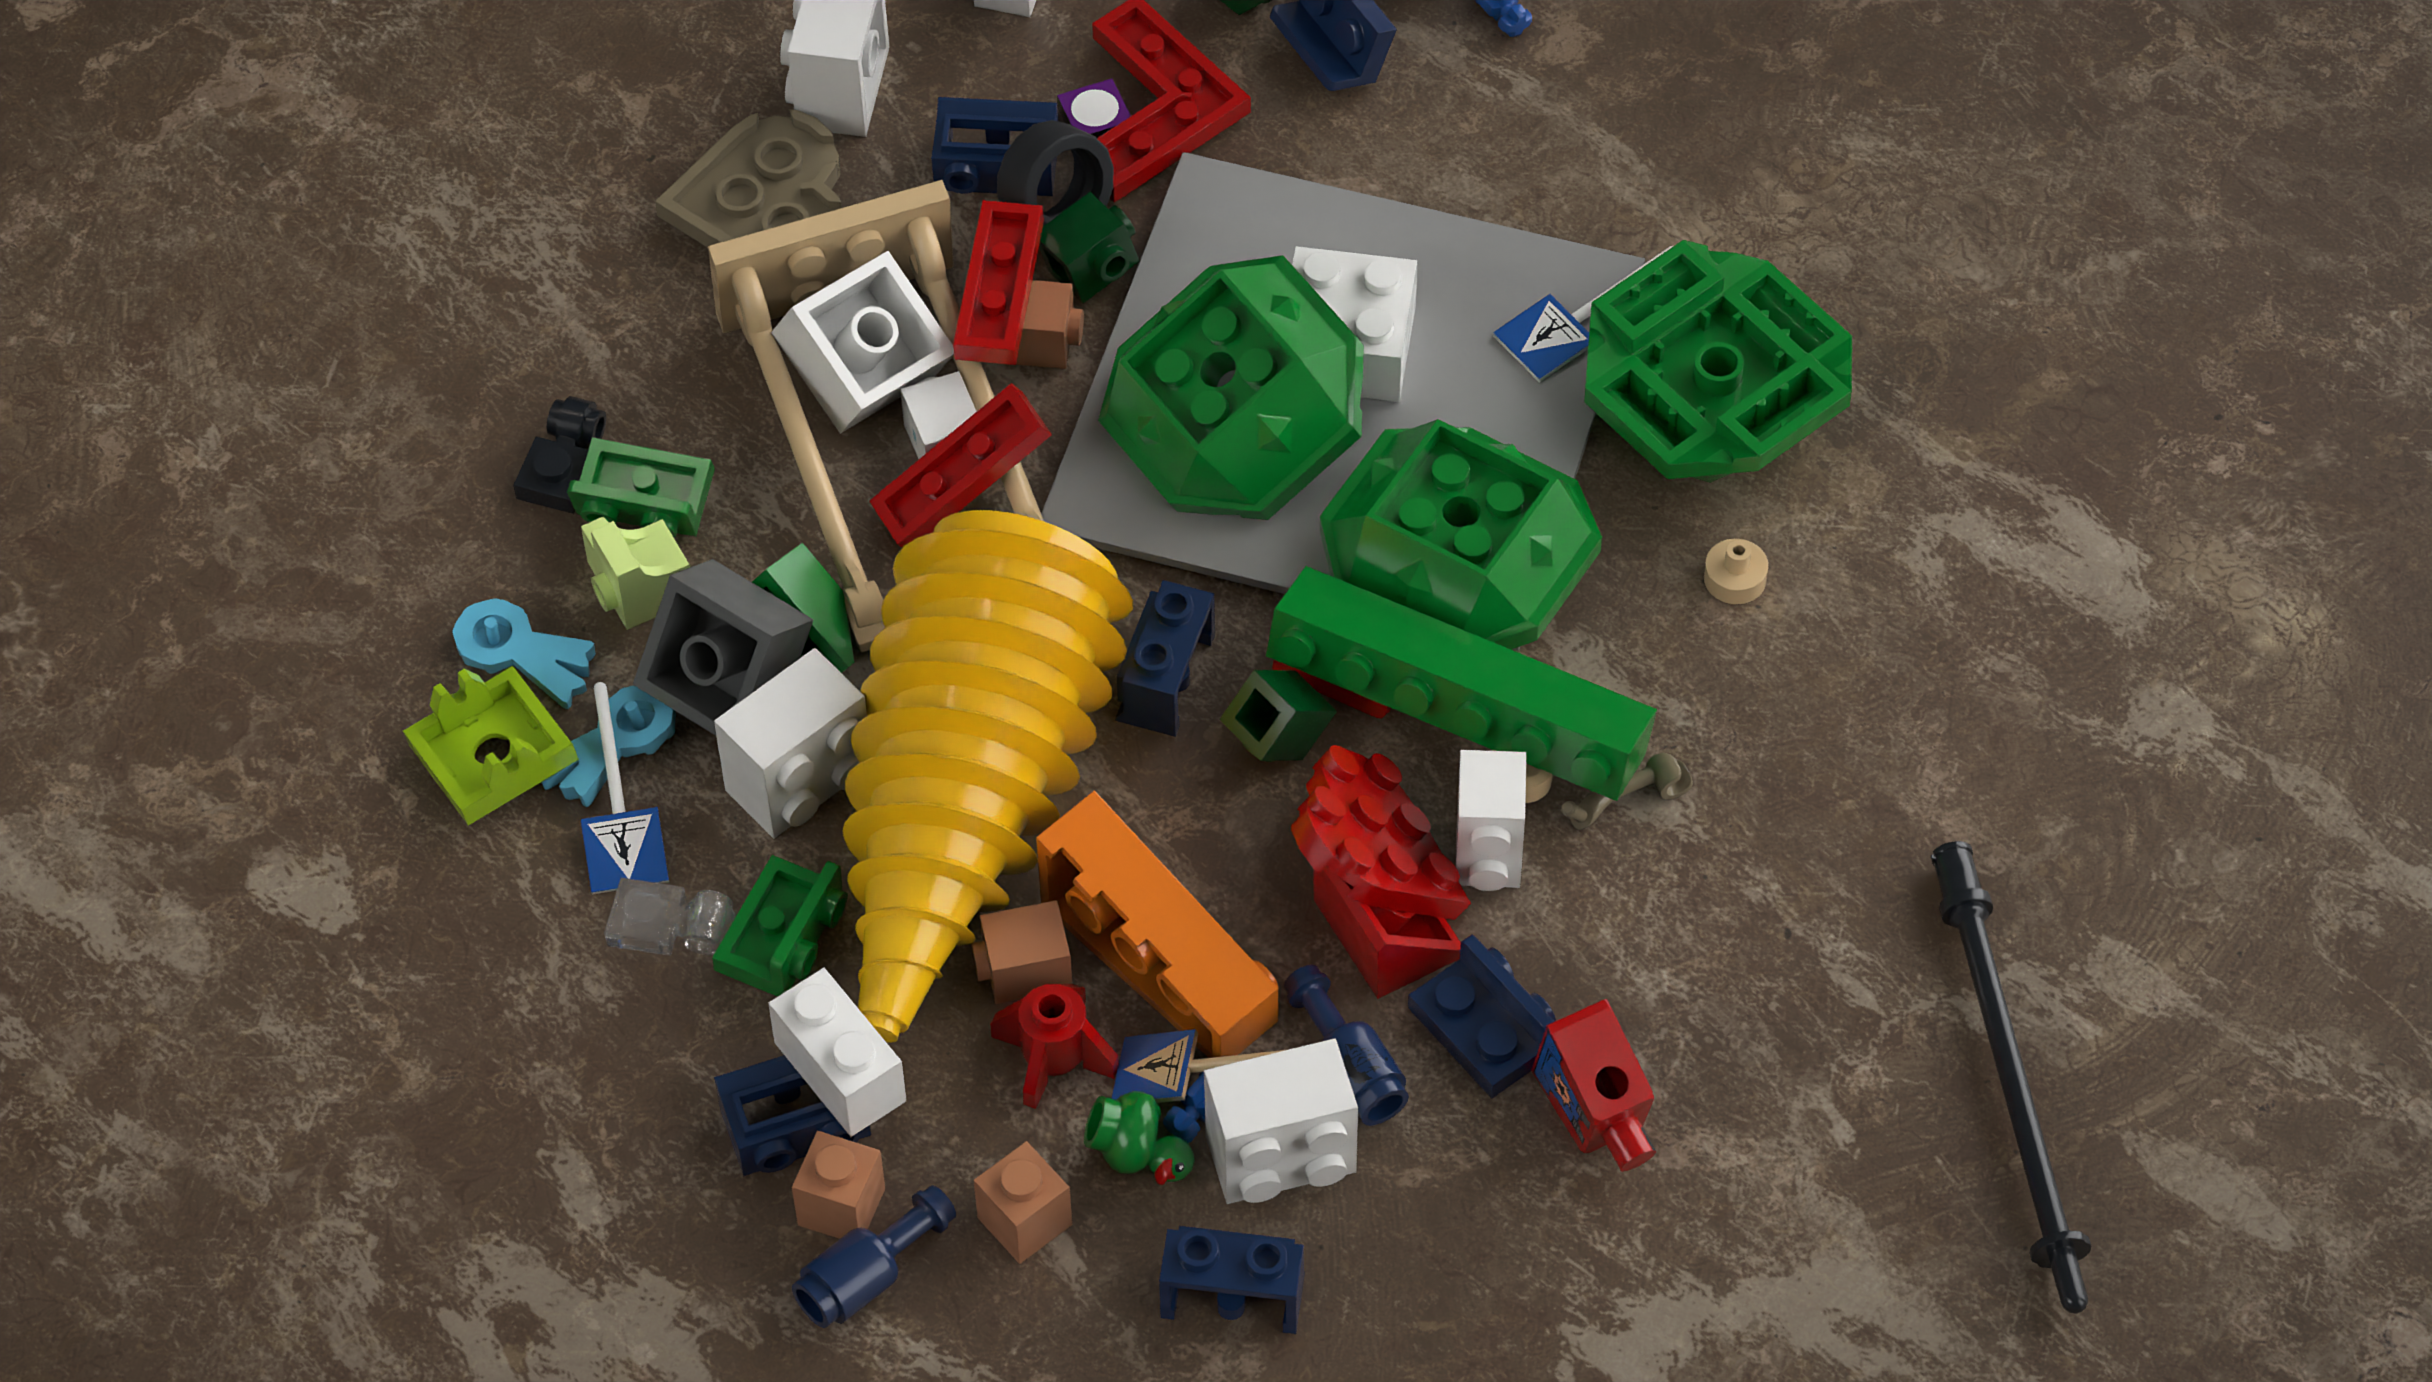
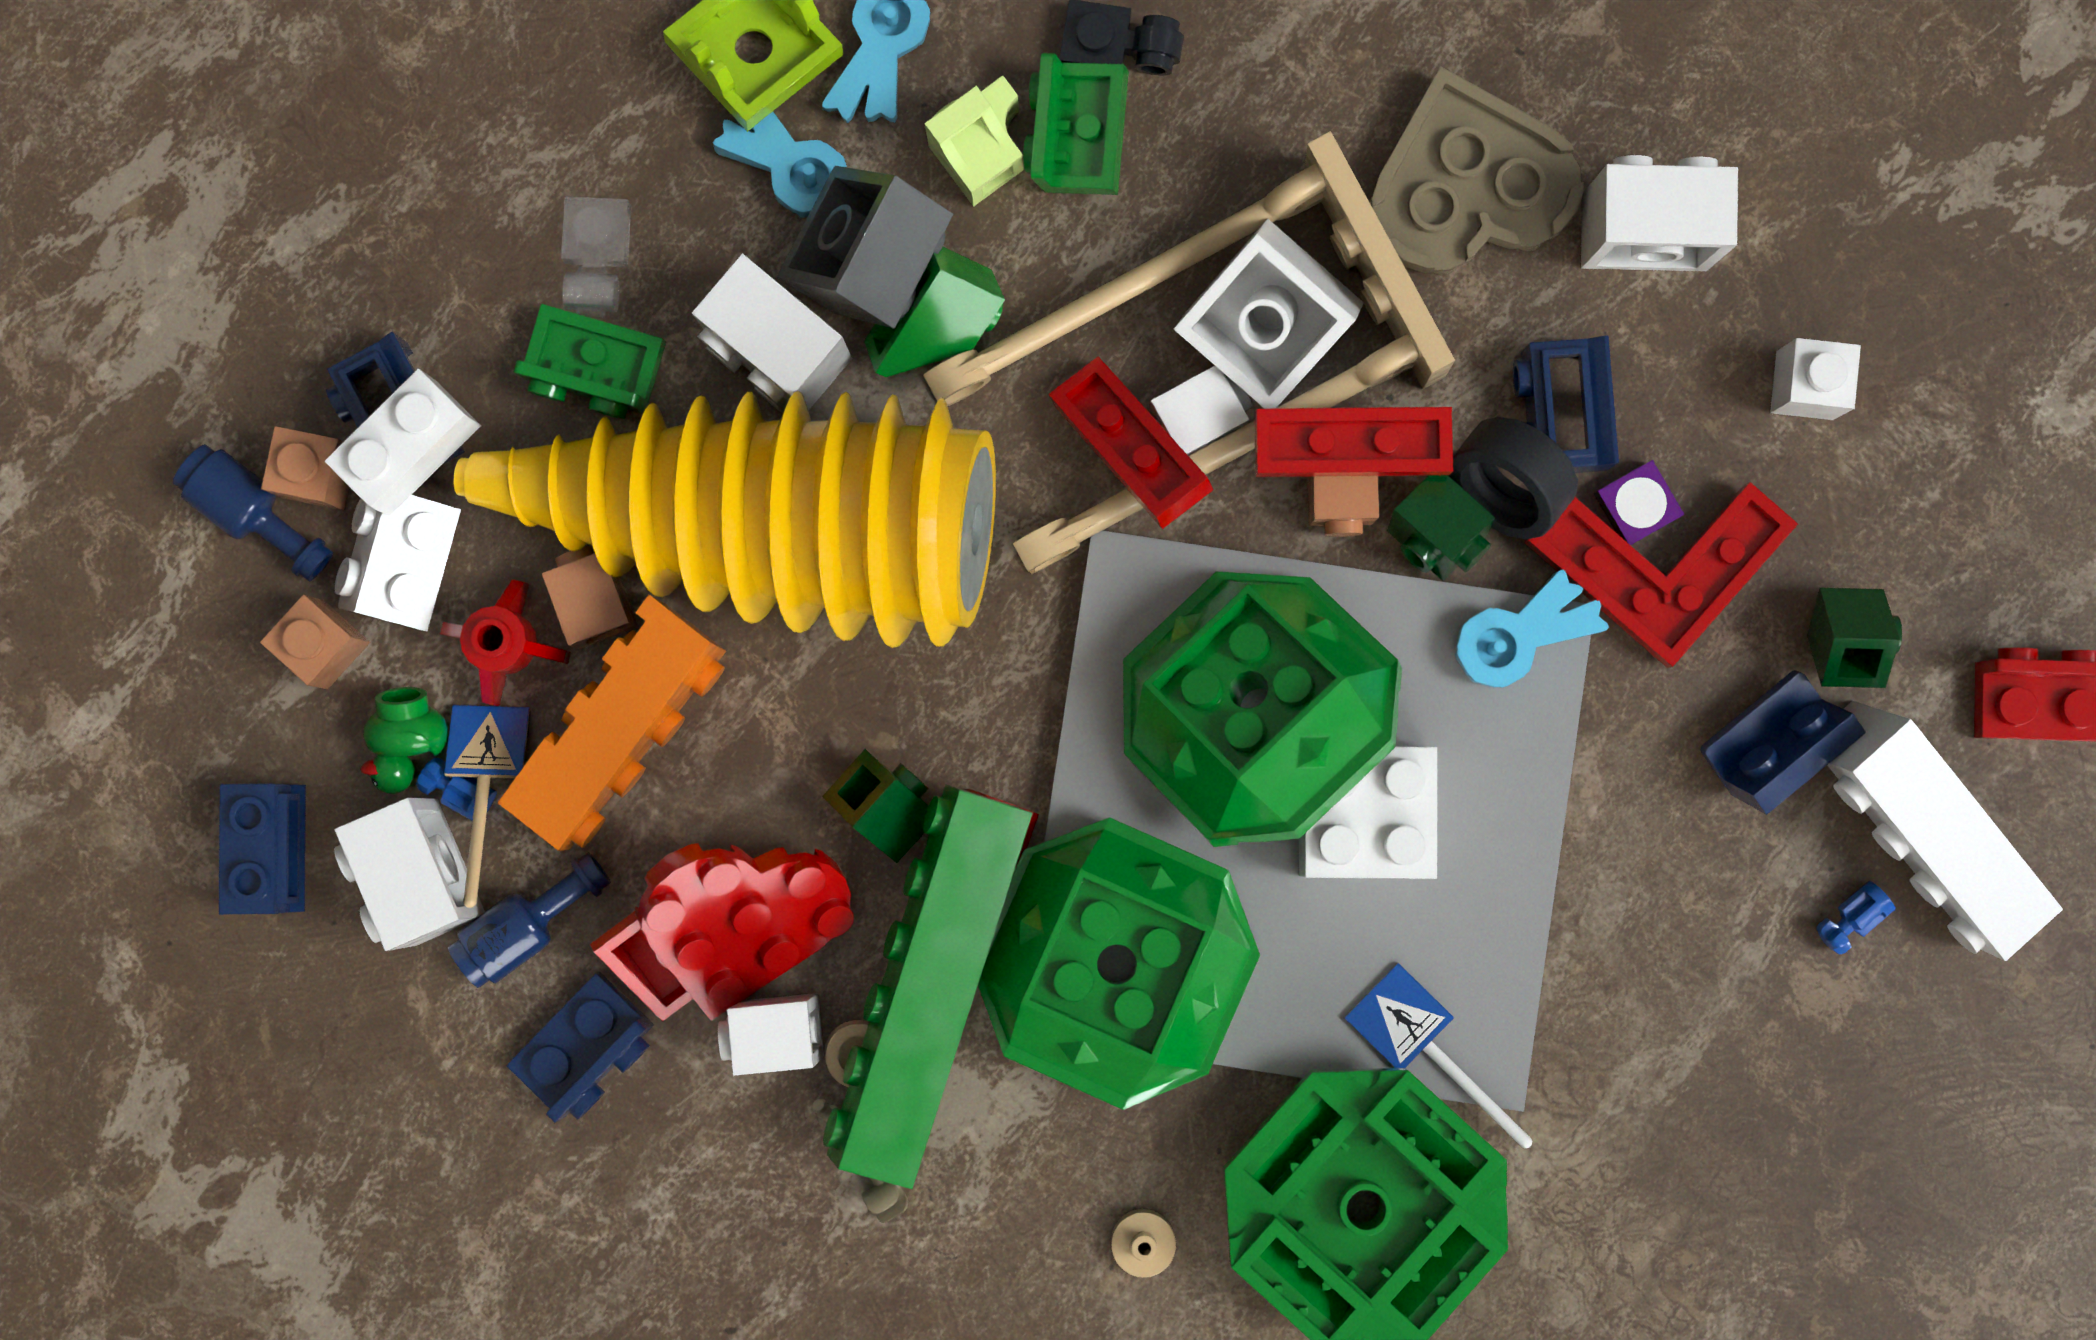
camera: 85 degrees right, 30 degrees up
(624, 841) = (671, 195): piece -> none
(947, 1130) = (397, 561): none -> white bracket
(1160, 656) = (942, 682): dark blue window -> none
(1205, 215) = (1501, 645): none -> medium azure piece
(1596, 1084) = (498, 1169): red torso -> none

